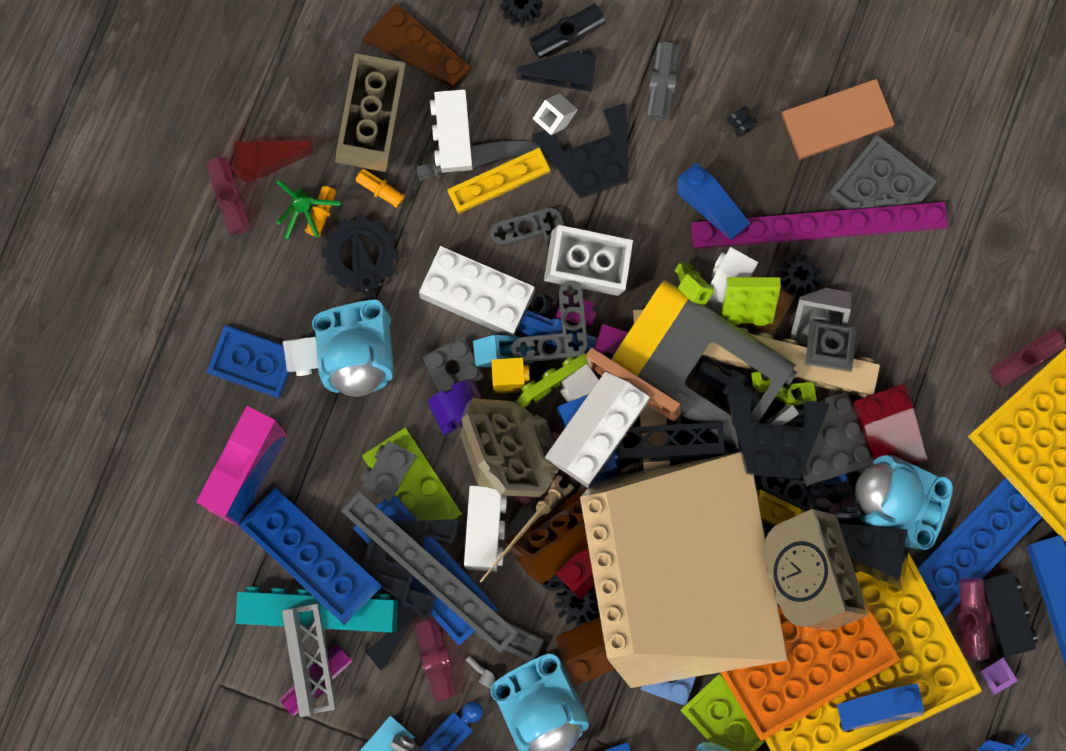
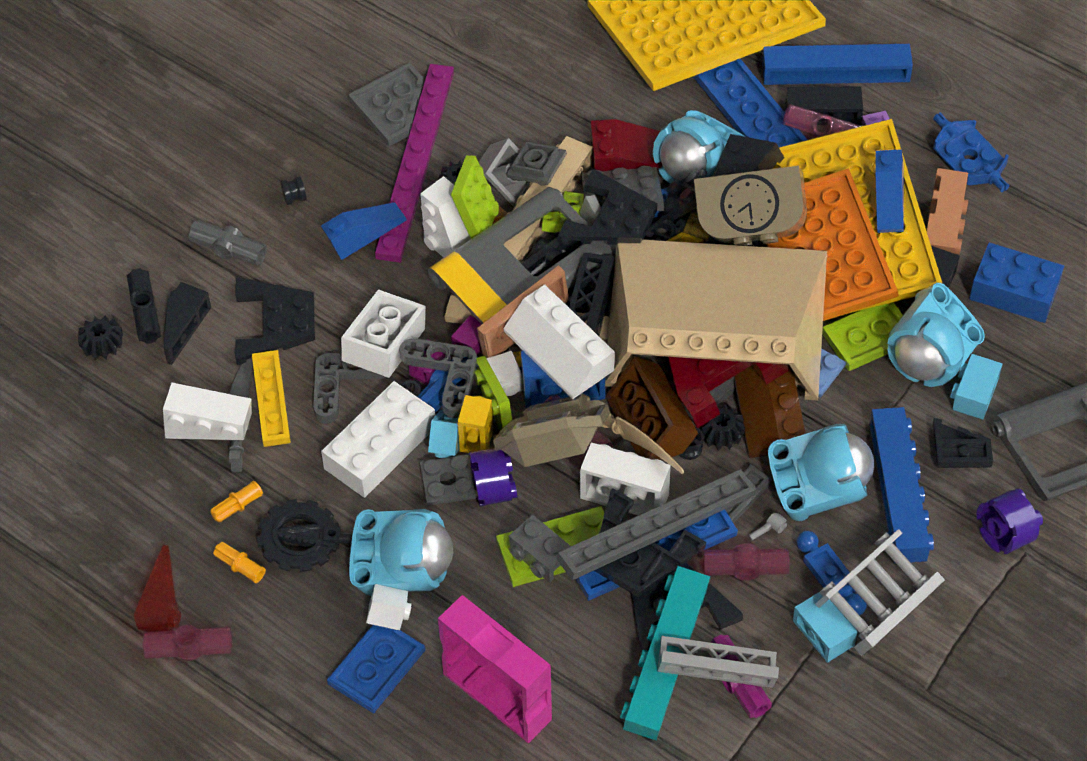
camera: 75 degrees left, 25 degrees down
(300, 204) = (225, 572): green plant -> none
(310, 556) = (613, 635): blue plate -> none
(370, 112) = (158, 477): dark tan brick -> none
(411, 42) = (91, 444): reddish brown wing -> none
(555, 114) = (224, 330): white brick -> none
(692, 284) = (438, 250): lime piece -> none
(837, 119) = (320, 124): nougat tile -> none
(1039, 349) = (595, 39): clear pink piece -> none

